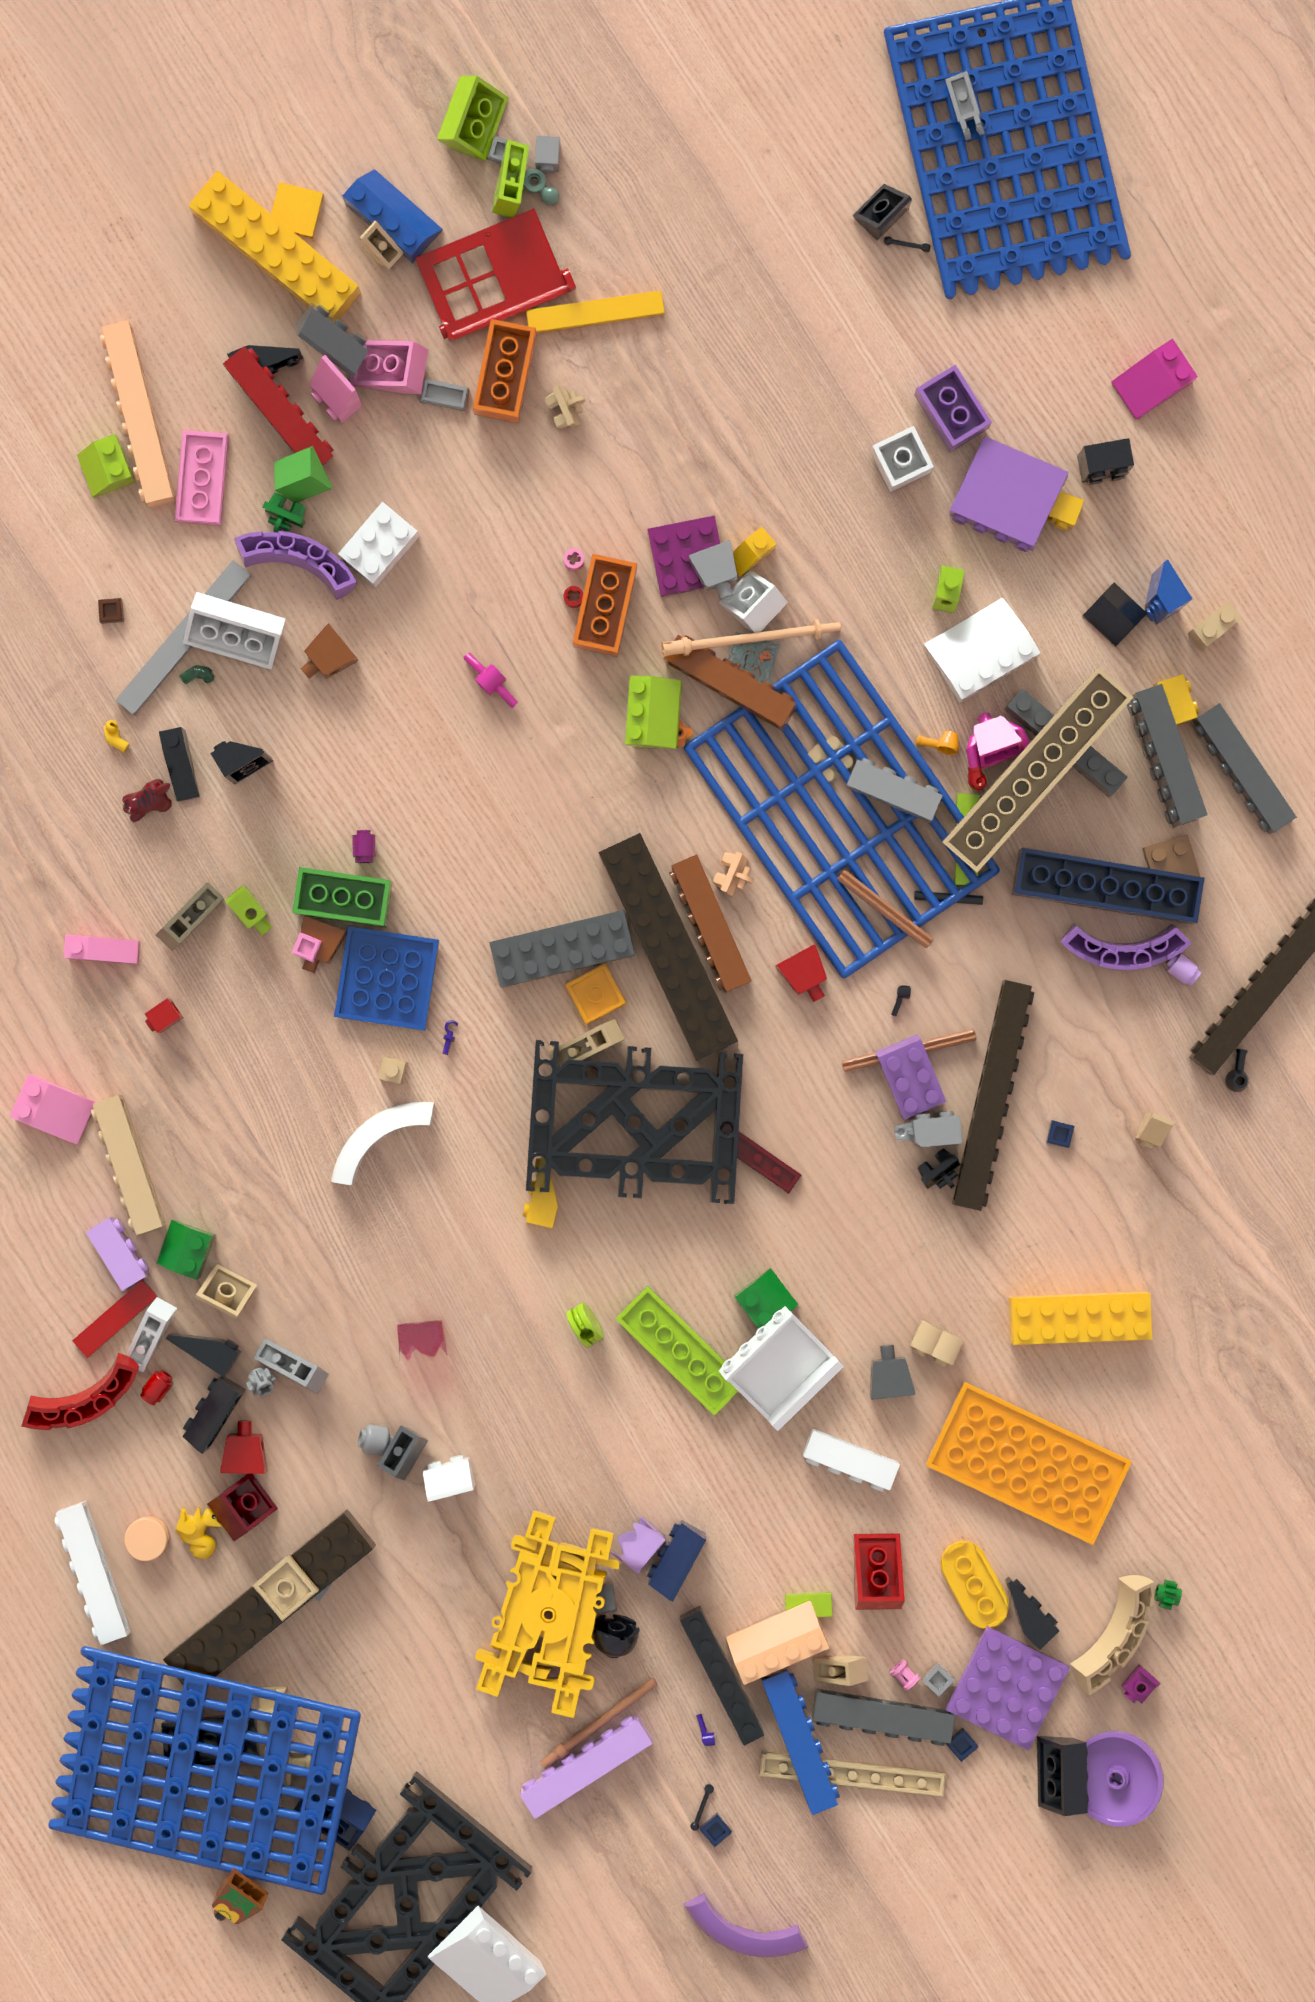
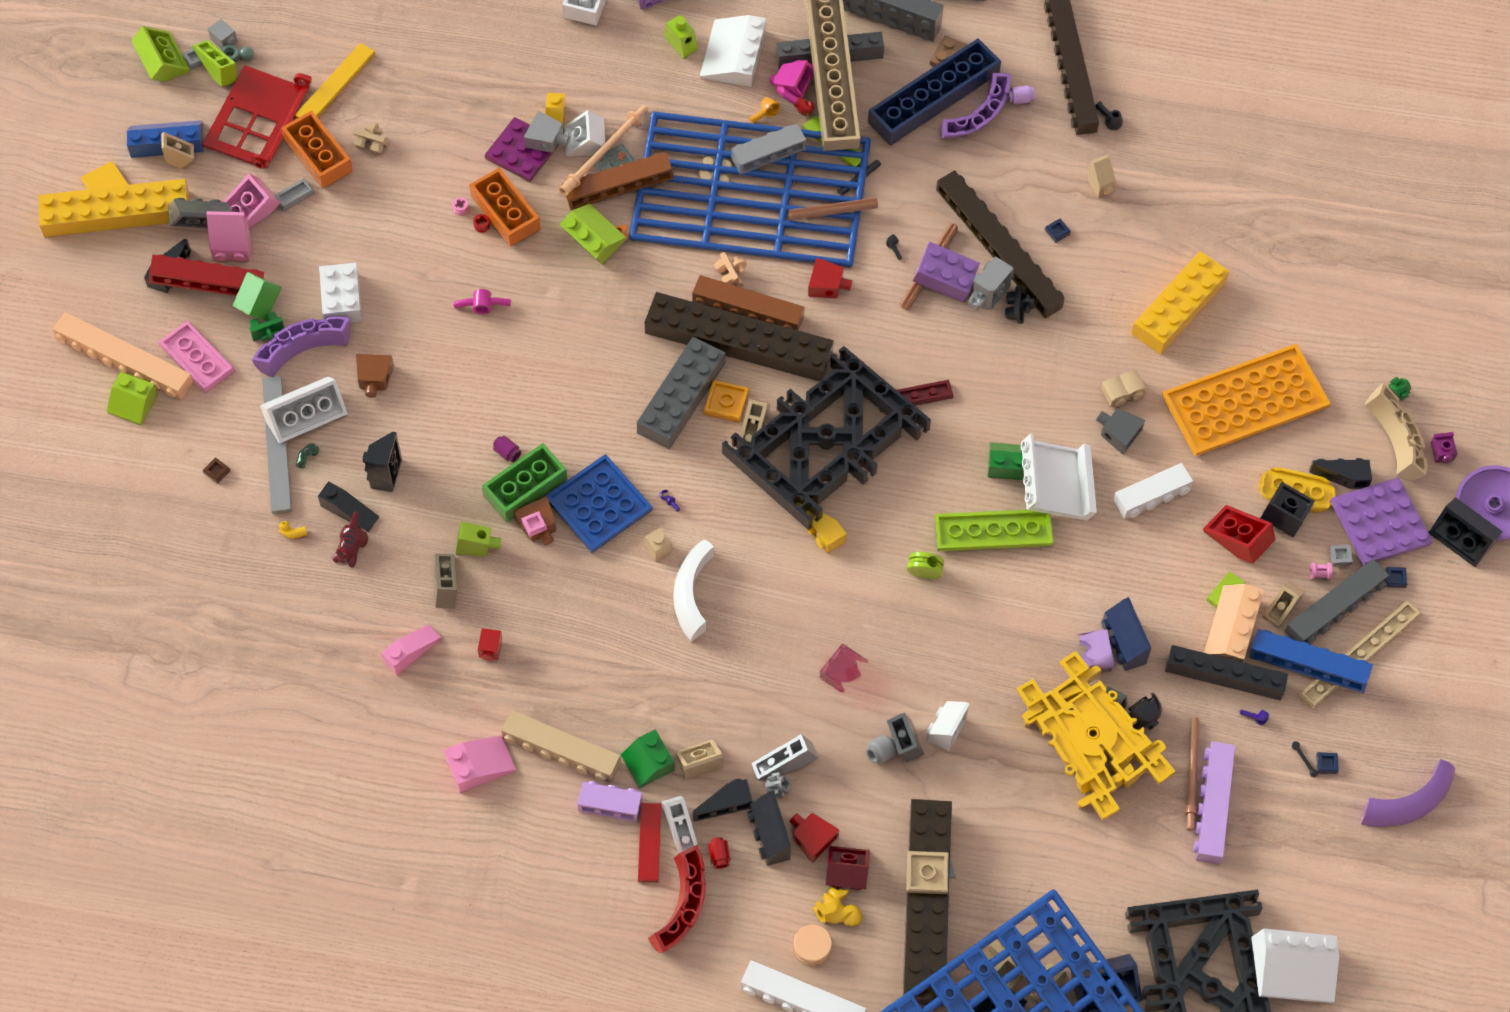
camera: 45 degrees left, 25 degrees down
(940, 1597) = (1287, 509): none -> black slope

